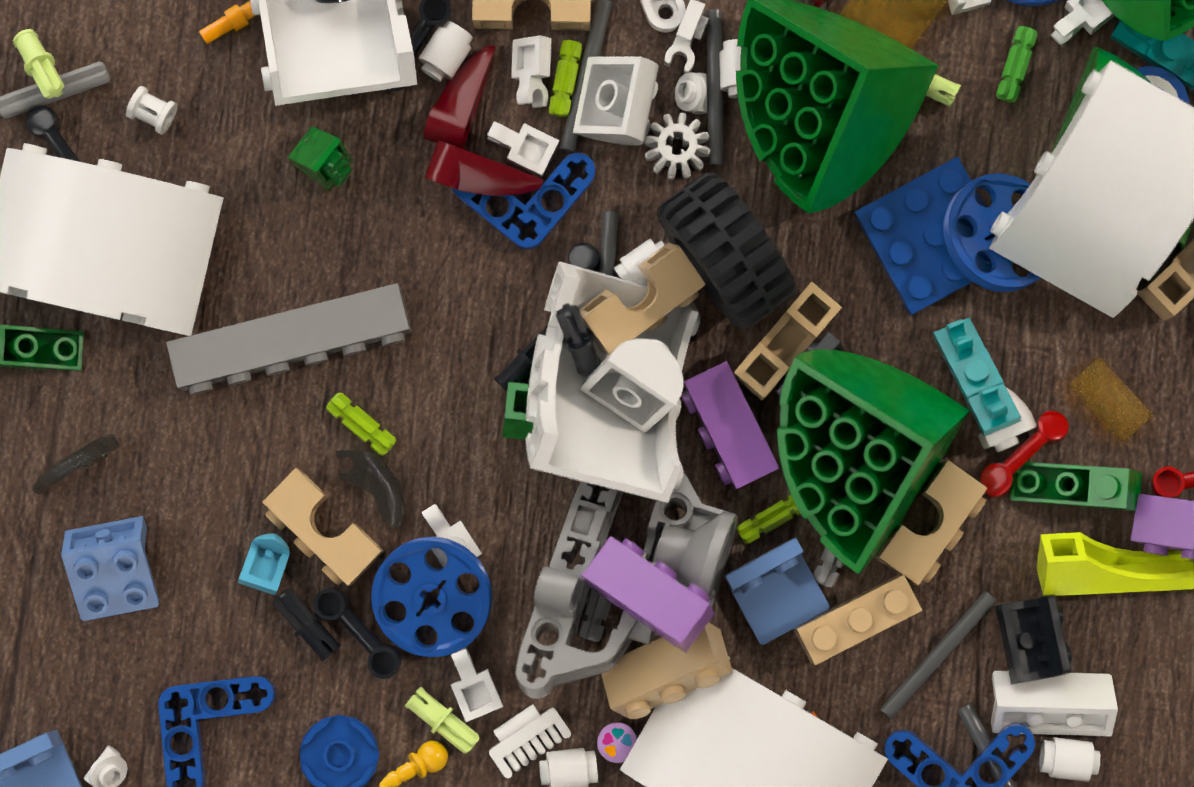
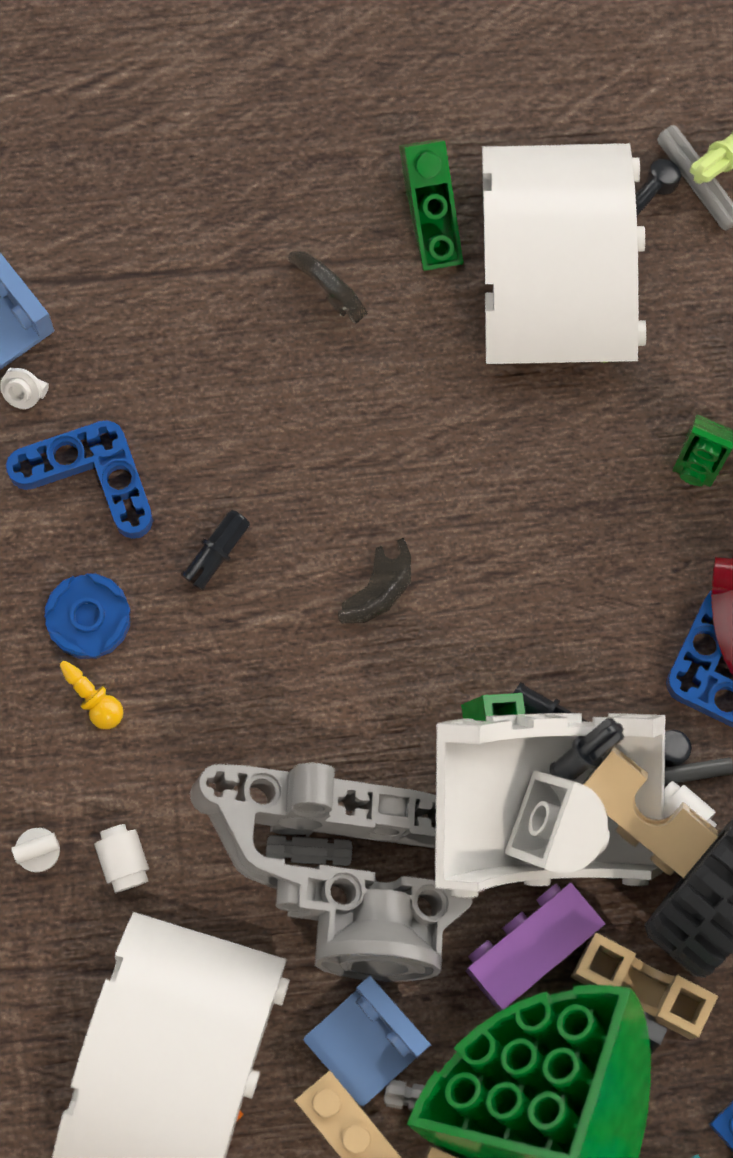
camera: 75 degrees right, 10 degrees down
(109, 568) = (228, 341): medium blue bracket -> none
(138, 109) = (704, 287): white bush -> none
(265, 563) = (269, 493): medium azure plate -> none
(289, 338) = (510, 465): light grey brick -> none
(295, 505) = (336, 509): tan arch -> none
(334, 604) = (196, 635): black bar -> none
(361, 424) = (438, 557): lime axle -> none
(435, 615) = (278, 689): blue wedge -> none
(442, 720) = (145, 713): yellowish green axle -> none
(455, 533) = (336, 680): white plate -> none
(475, 690) = (184, 739): white plate -> none
(519, 731) = (156, 801): white piece -> none
(616, 741) = (163, 902): tile -> none
(649, 593) = (332, 888): medium lavender brick -> none
(665, 673) = (253, 935): tan brick -> none
(767, 520) = (440, 1012): lime axle -> none

